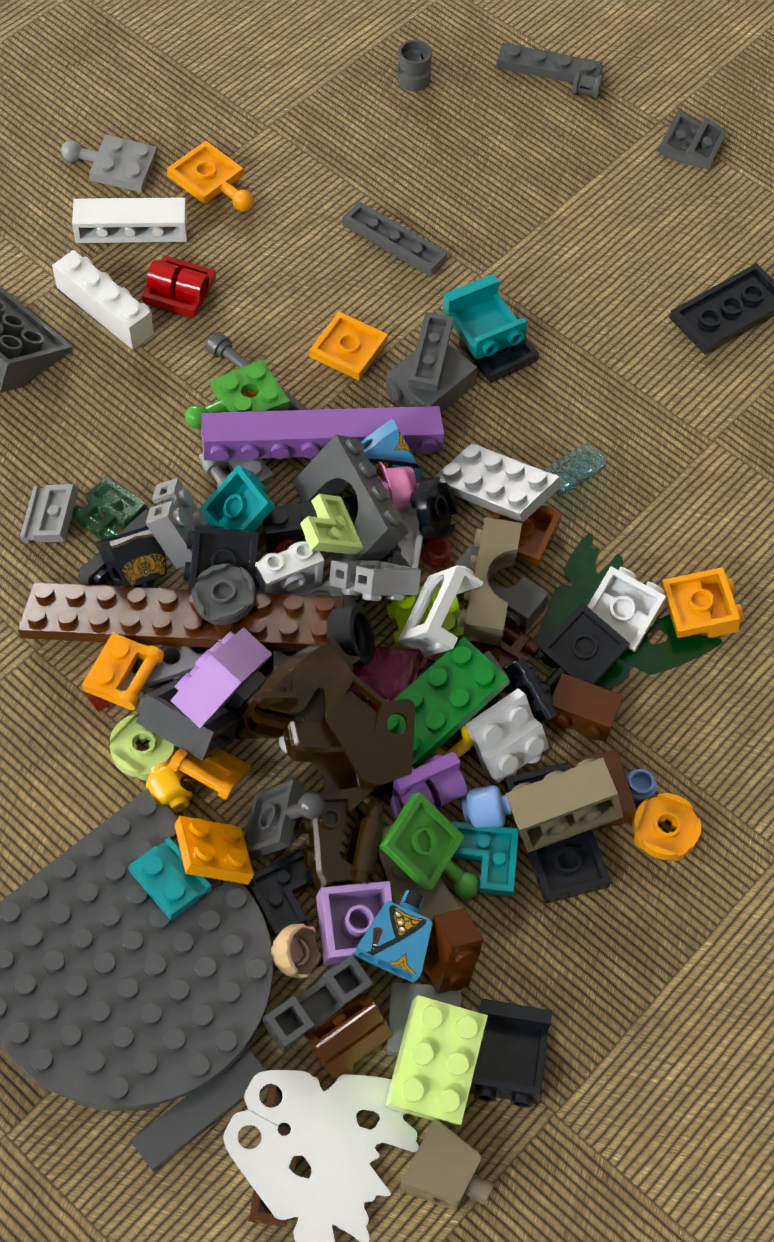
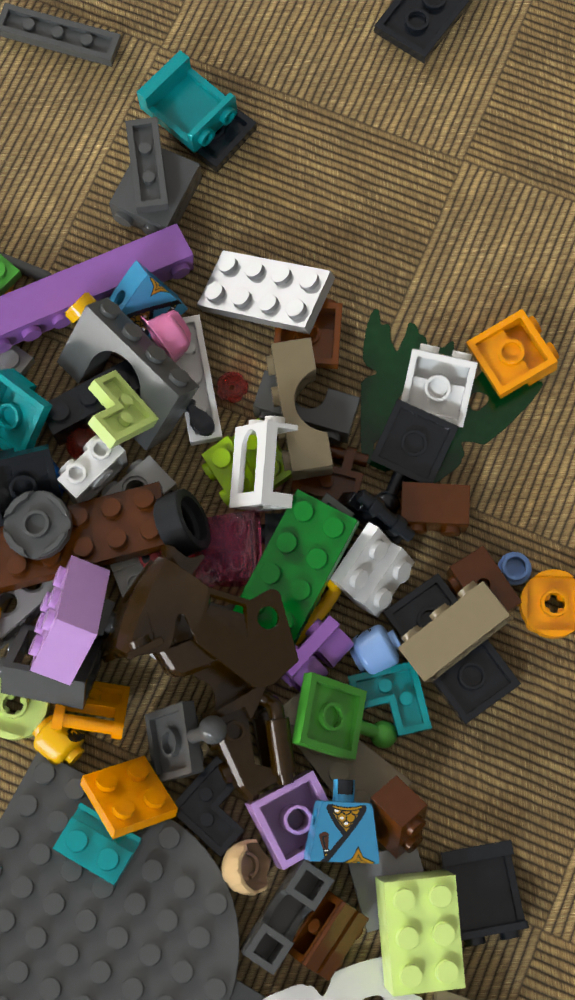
camera: 15 degrees left, 15 degrees up
(324, 438) = (77, 308): none -> yellow tile
(348, 345) = (56, 180): light orange plate -> none
(374, 579) = (182, 456): light grey piece -> none
(434, 507) = (212, 344): black plate -> none
(577, 467) = (336, 243): clear light blue plate -> none

